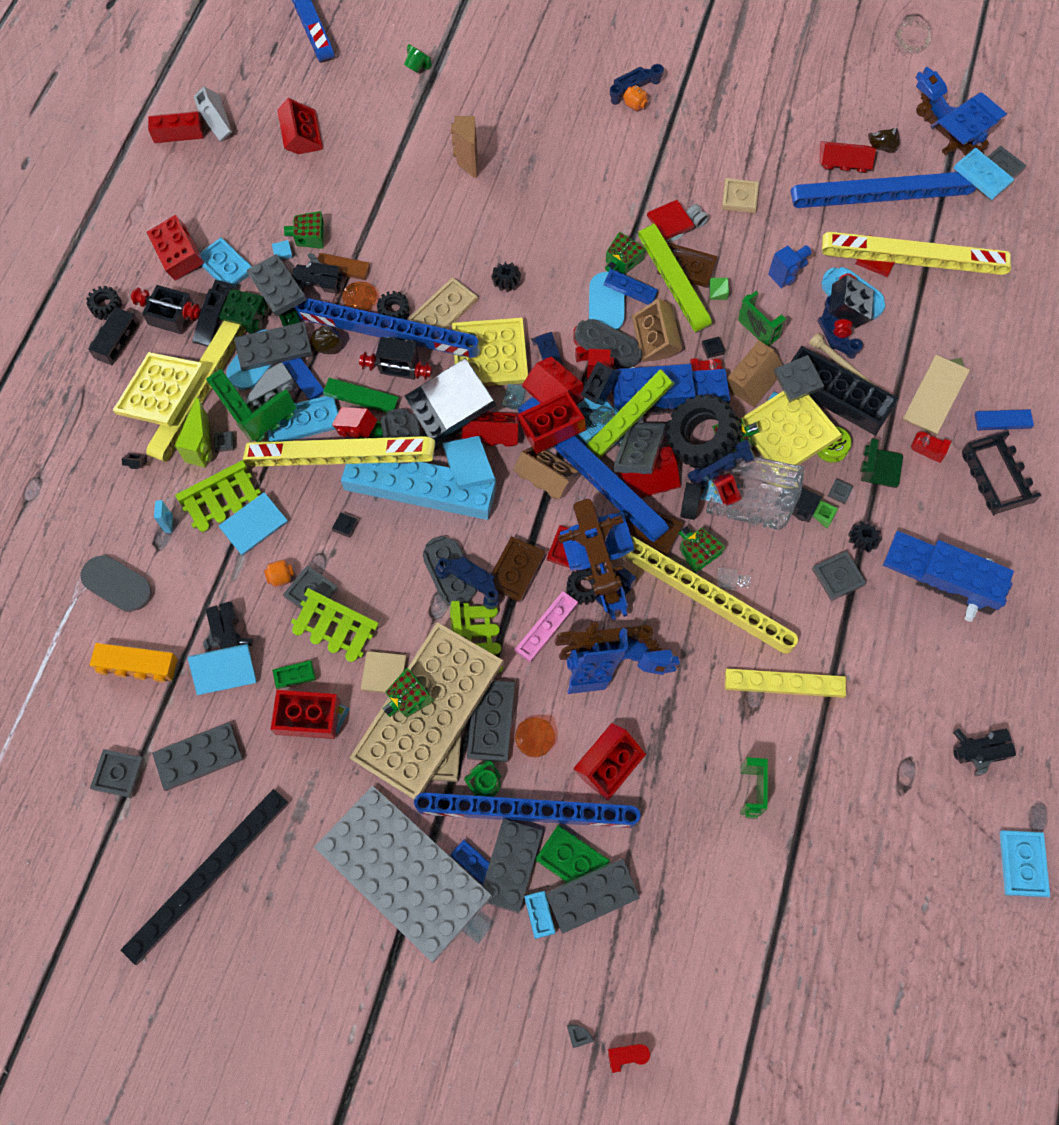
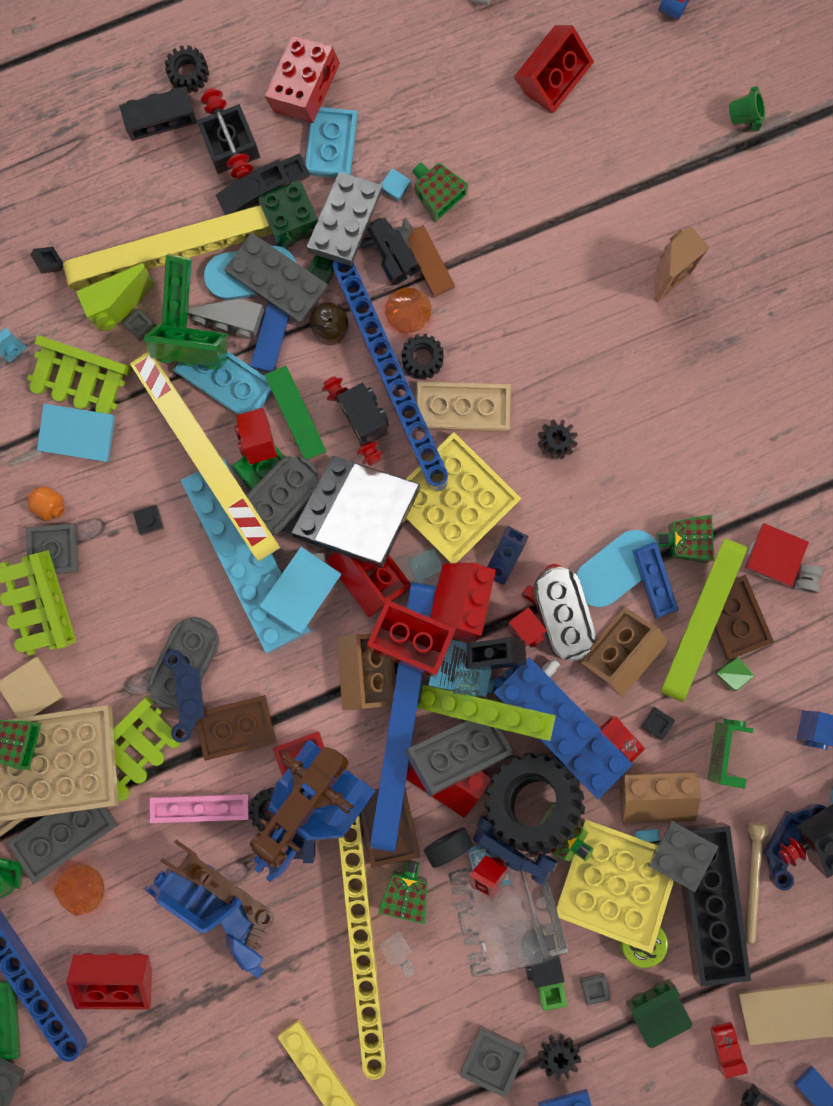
camera: 50 degrees right, 15 degrees up
(159, 389) = (134, 214): light yellow plate -> none

